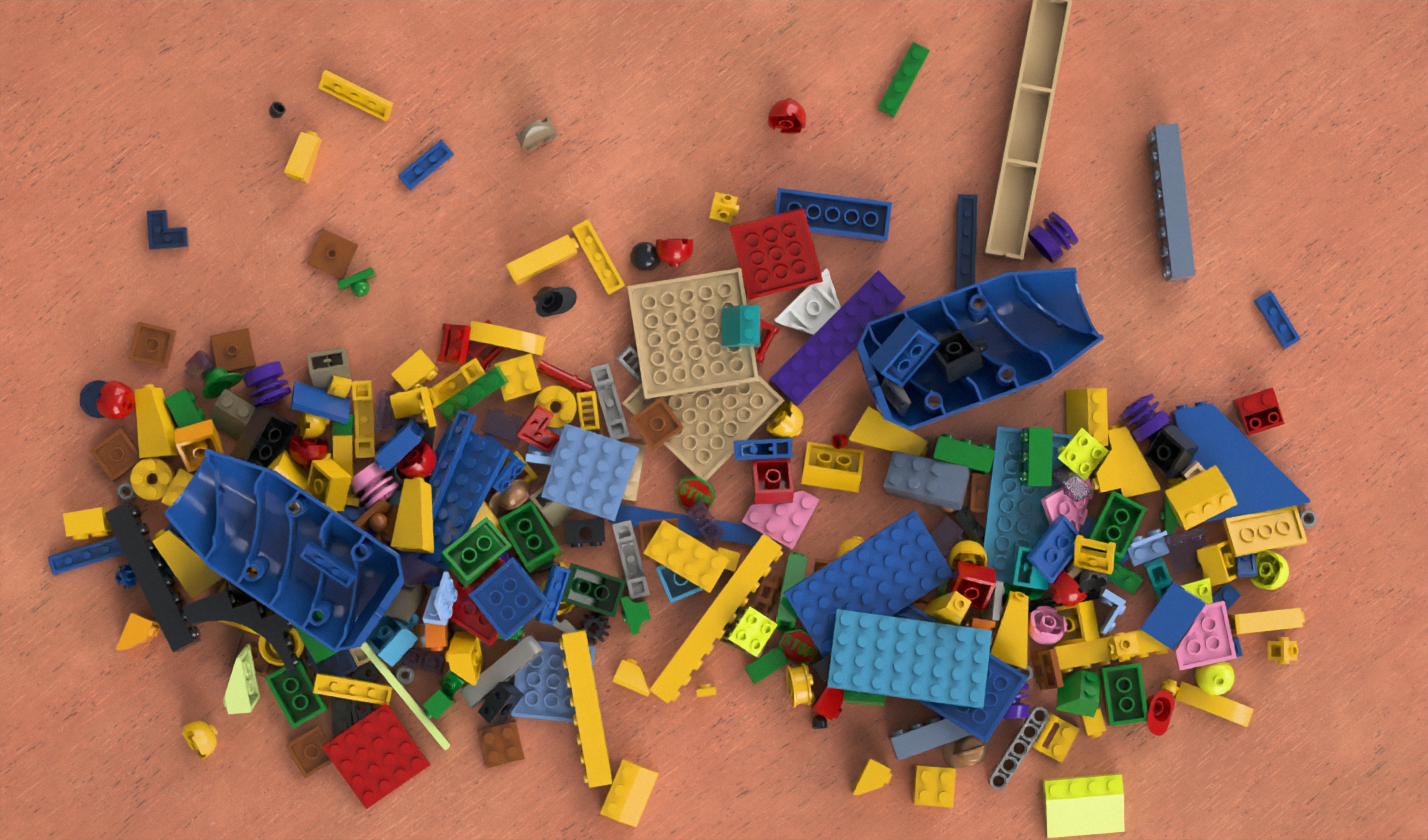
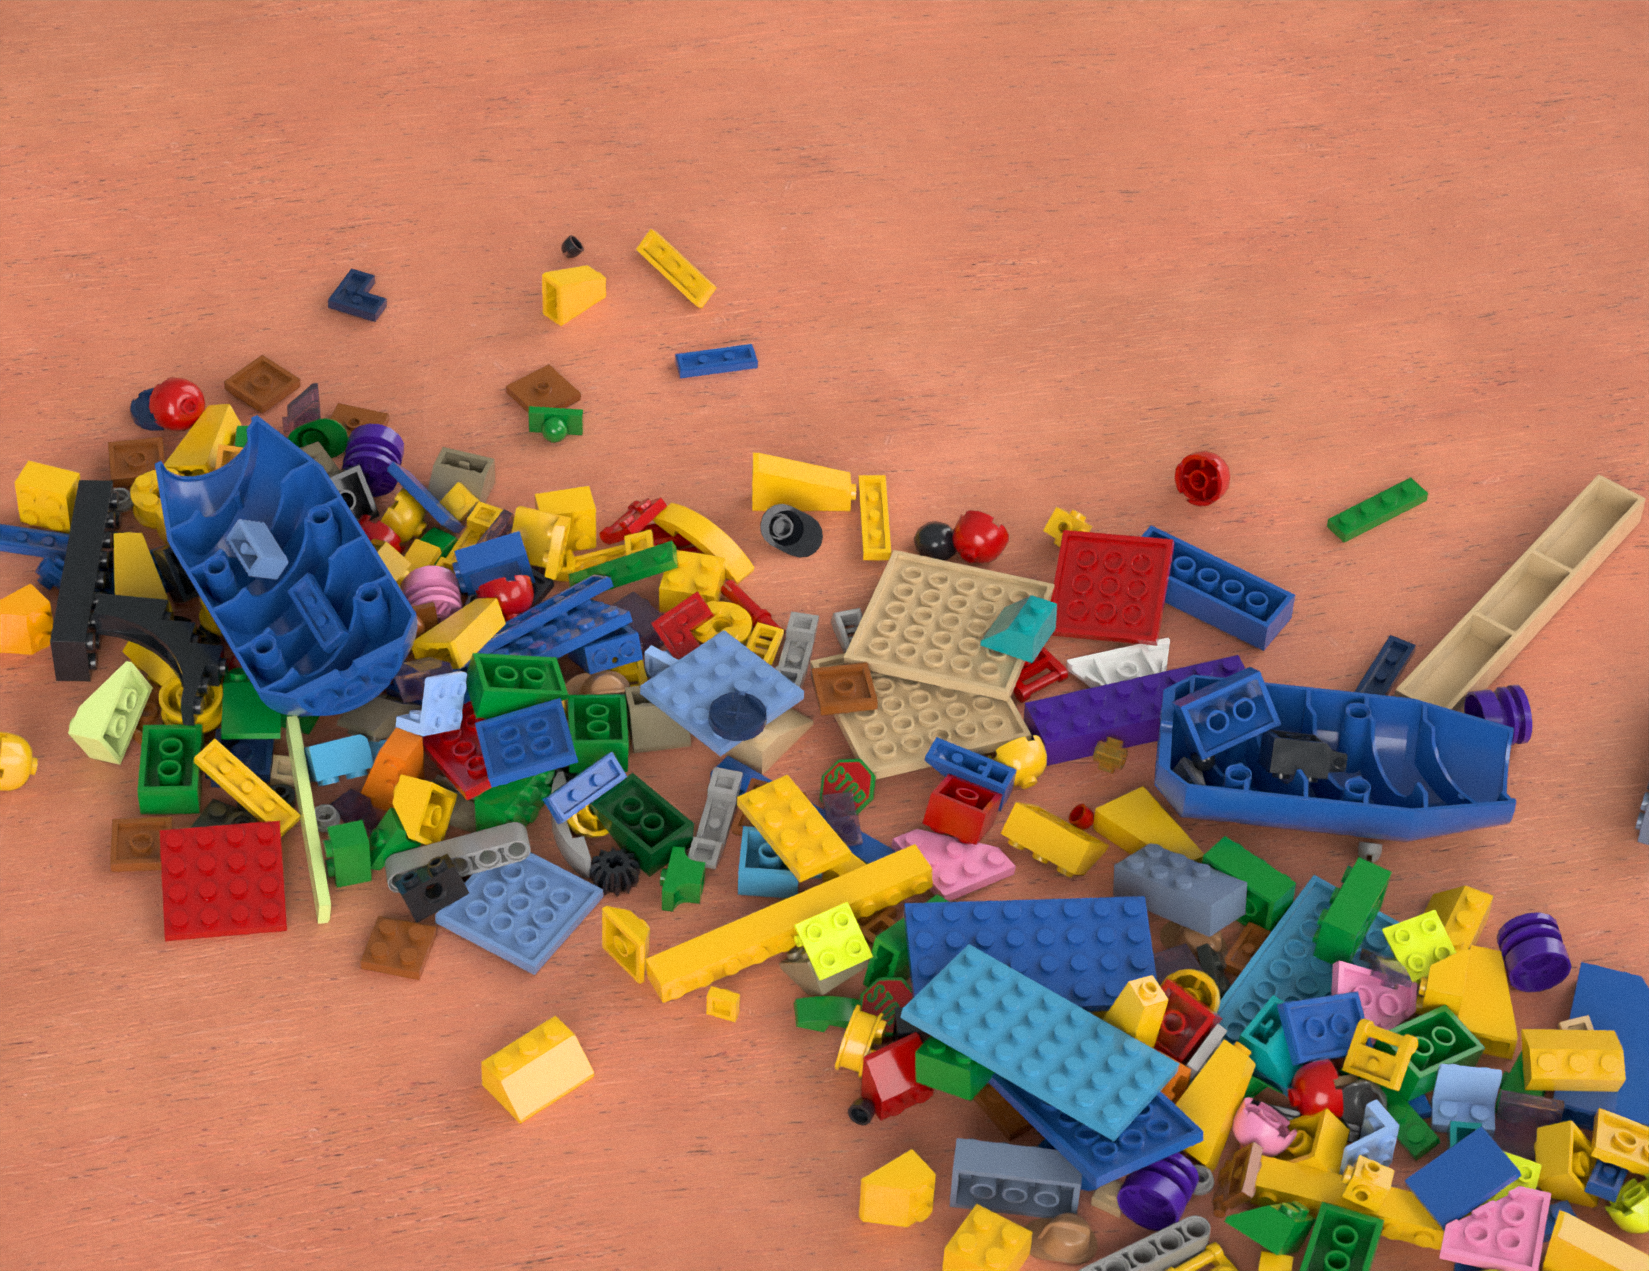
camera: 25 degrees right, 40 degrees down
(265, 541) = (257, 549): none -> medium blue brick
(536, 133) = (873, 373): dark tan slope -> none
(574, 527) = (673, 768): black brick -> none
(587, 708) = (545, 939): yellow brick -> none
(613, 496) = (737, 716): none -> dark blue tile
(835, 385) = (1110, 755): none -> clear yellow gear
(1170, 451) = (1553, 994): black hinge -> none

